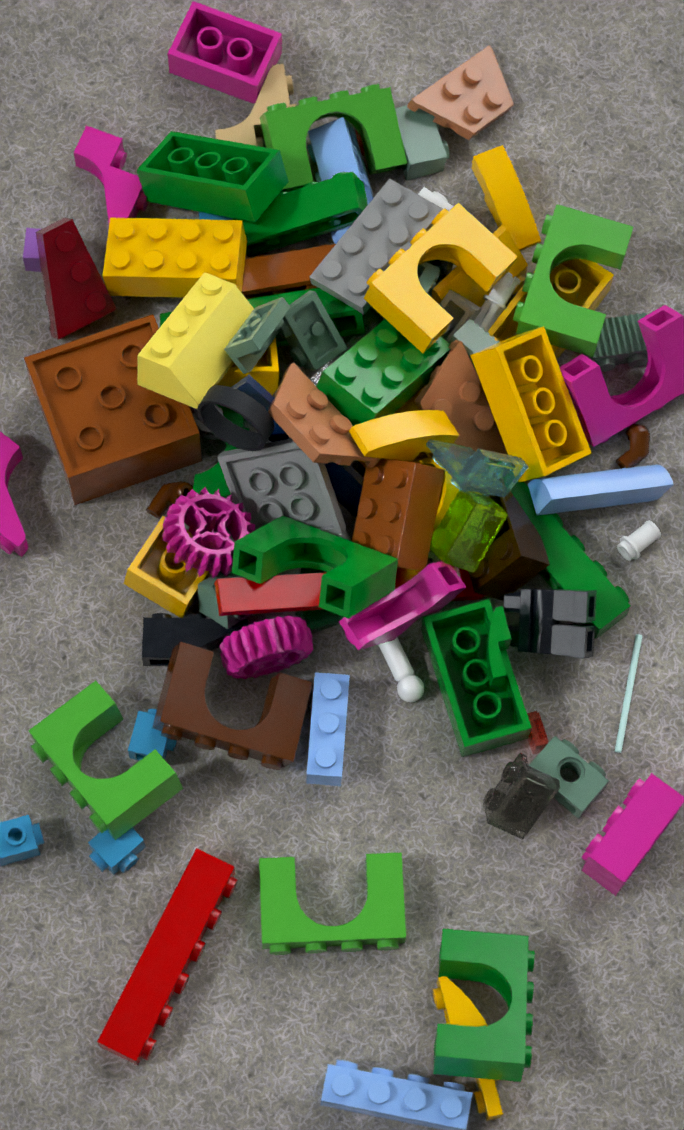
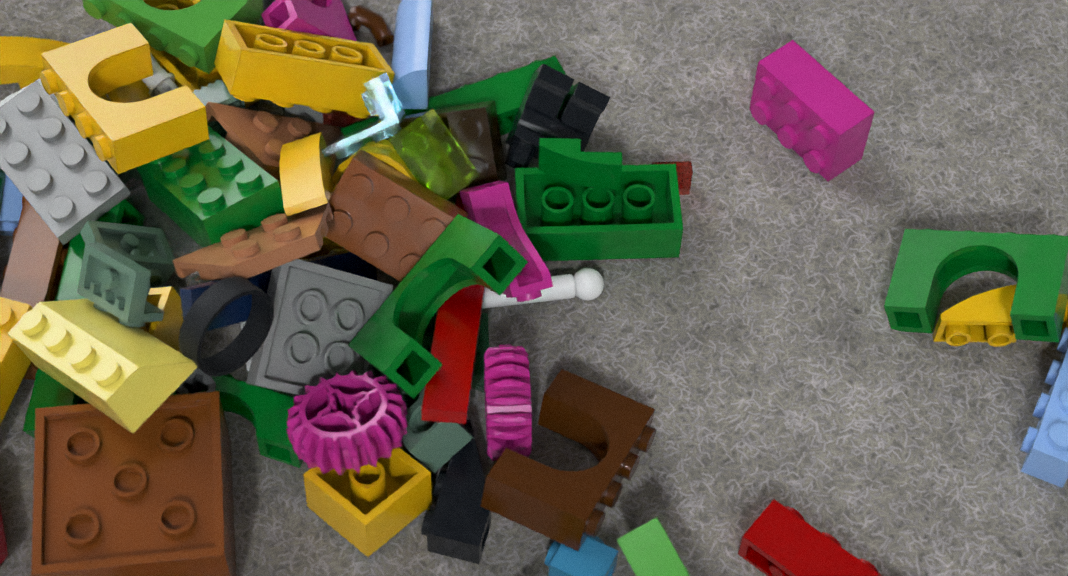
camera: 75 degrees left, 15 degrees down
(167, 496) = (264, 482): reddish brown arm -> none
(327, 729) = (623, 367): light blue brick -> none
(377, 924) = (843, 468): bright green arch -> none
(519, 797) = (743, 203): clear smoke bracket -> none
(575, 795) = (729, 161): sand green brick -> none
(628, 693) = (644, 97): light aqua axle -> none
(639, 540) = (480, 49): white pin -> none

